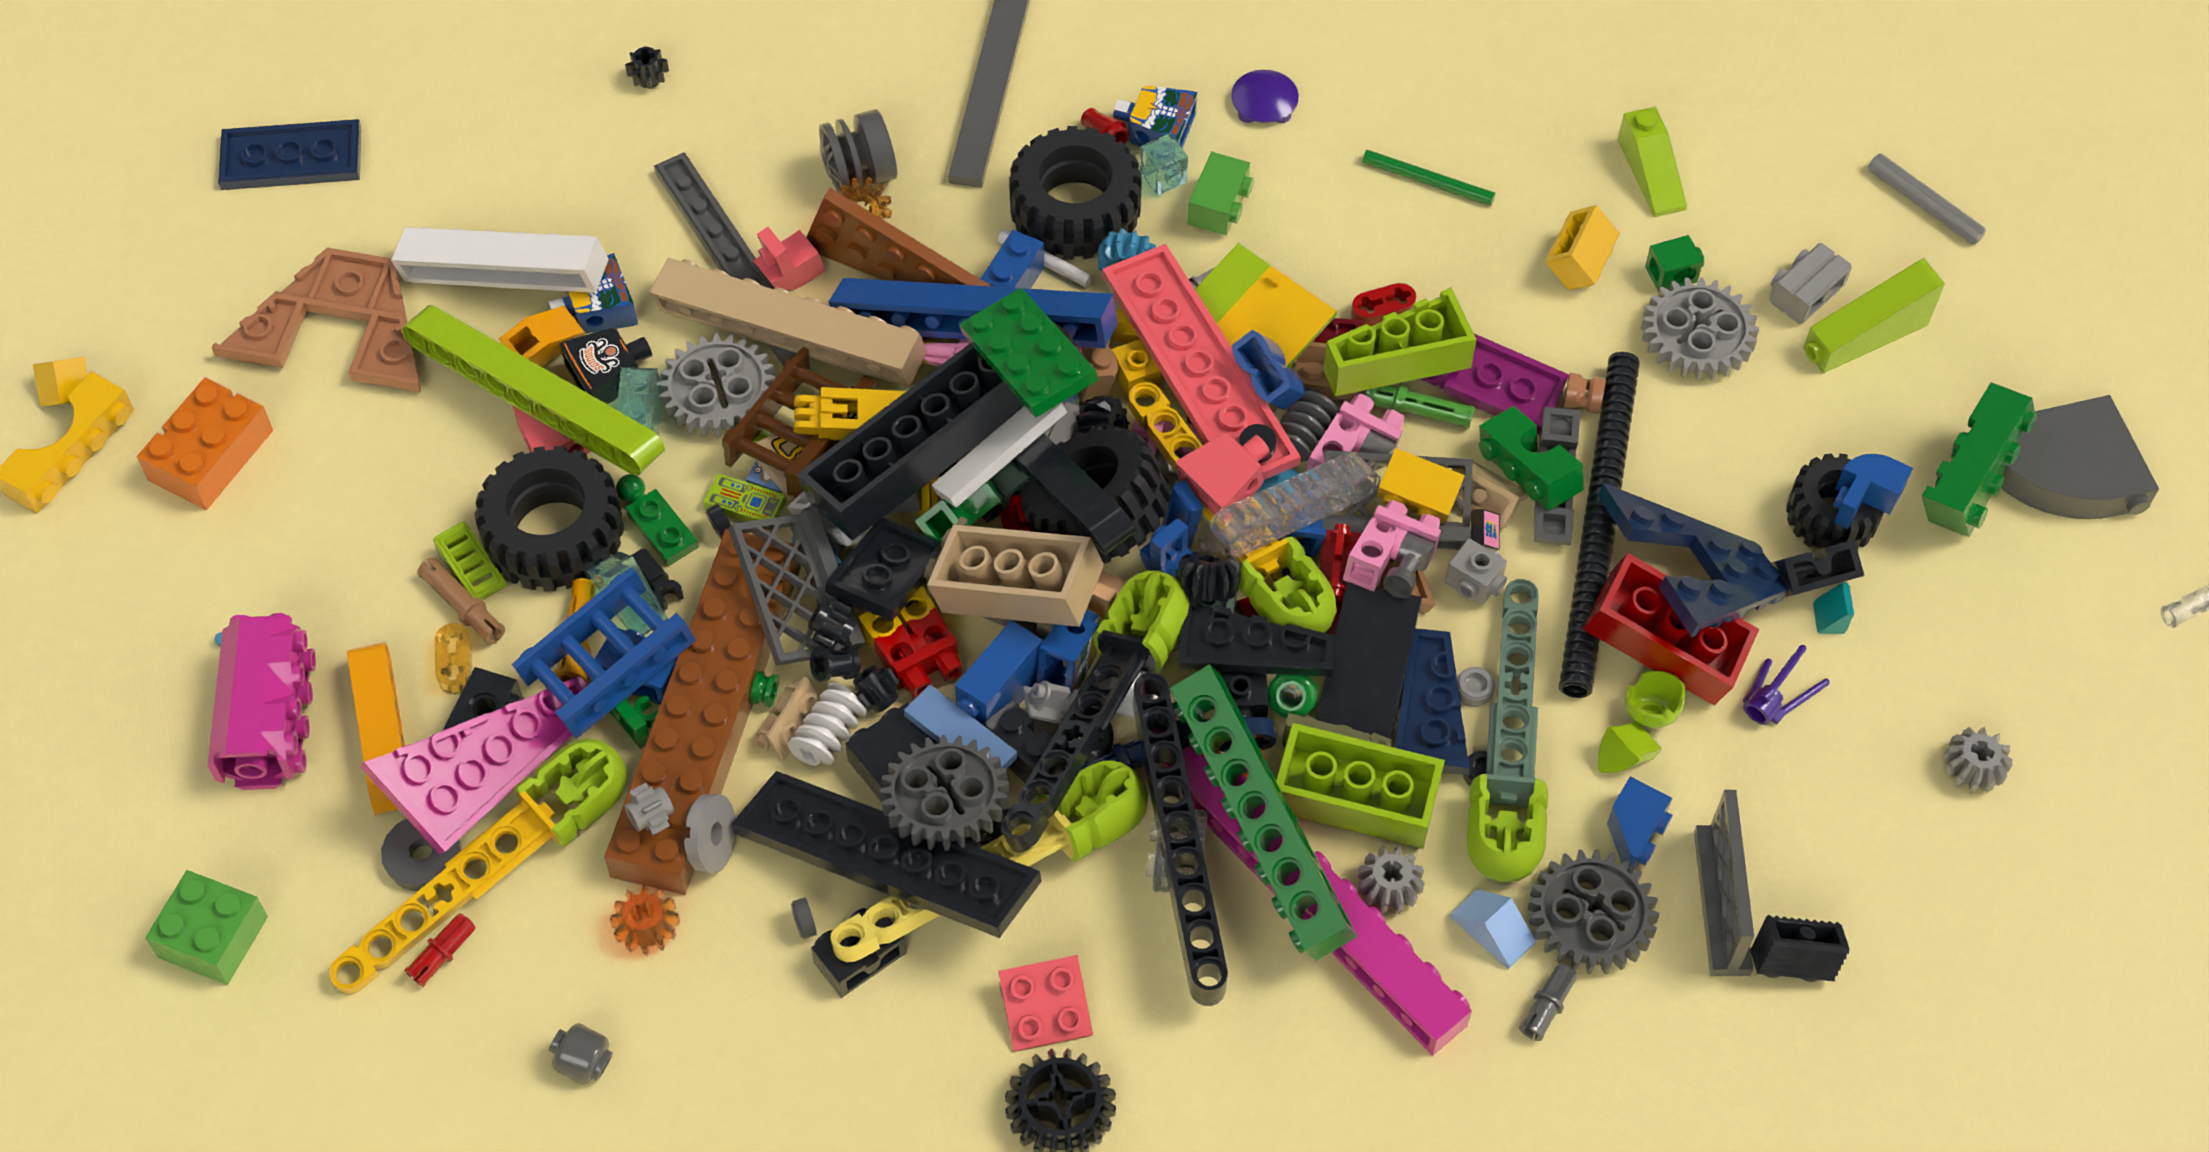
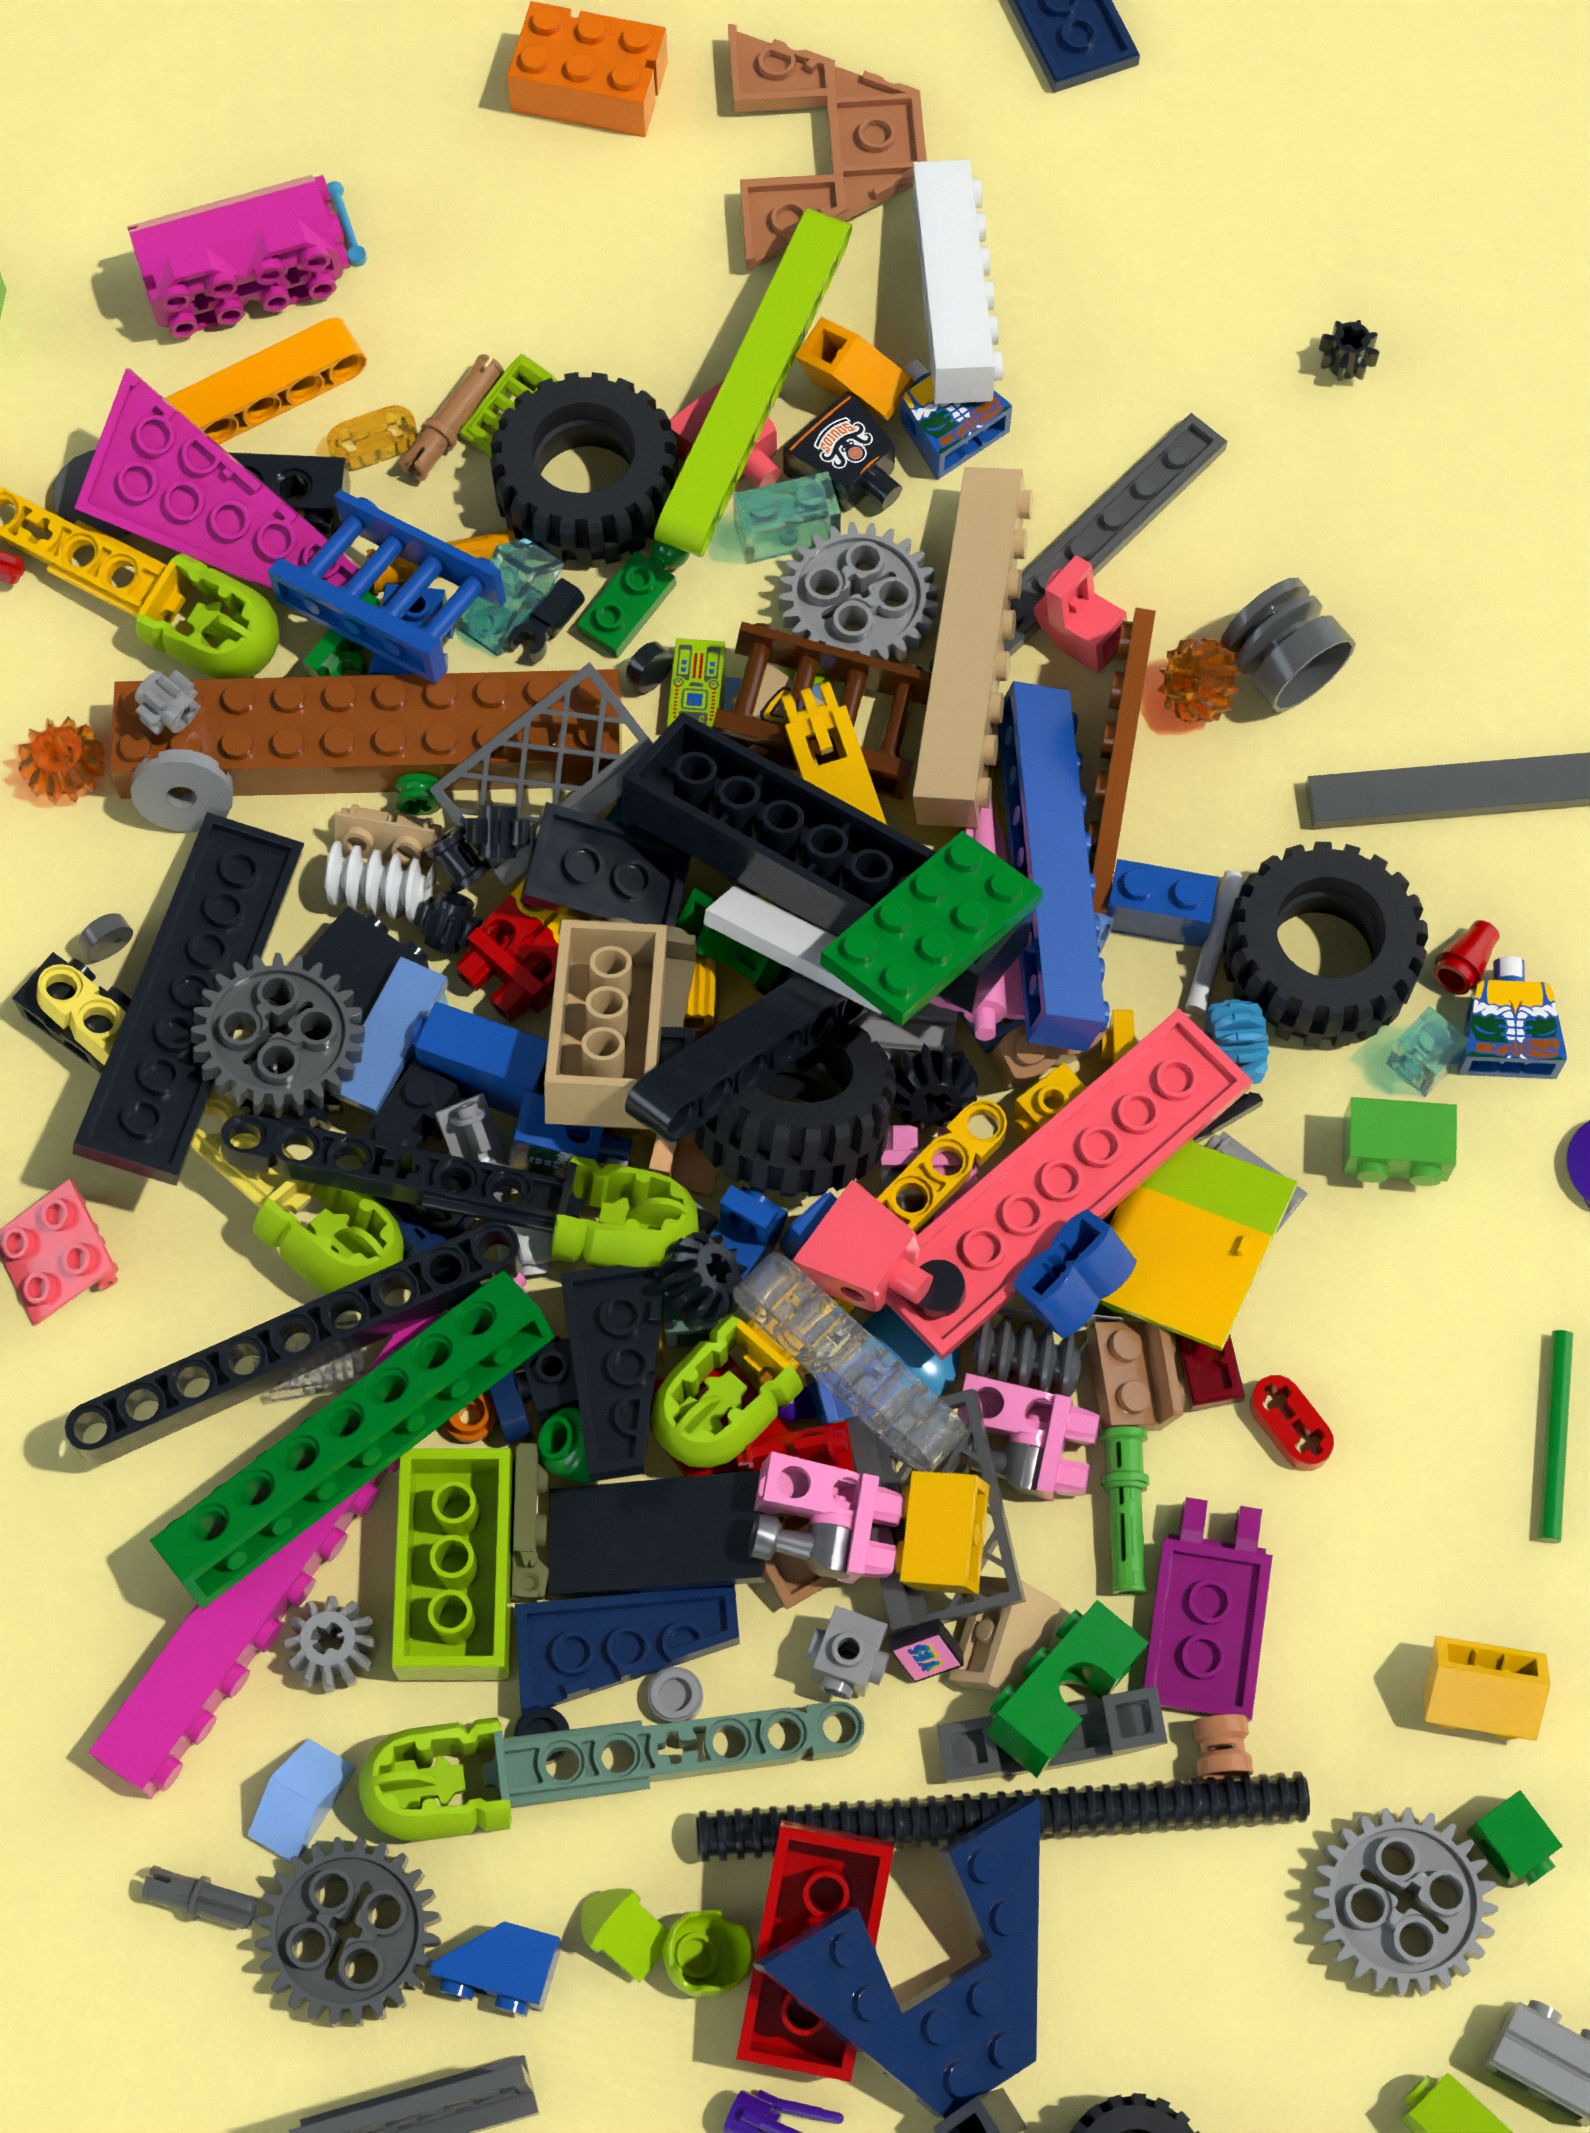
camera: 75 degrees right, 10 degrees up
(1402, 348) = (1180, 1452): lime wedge -> none

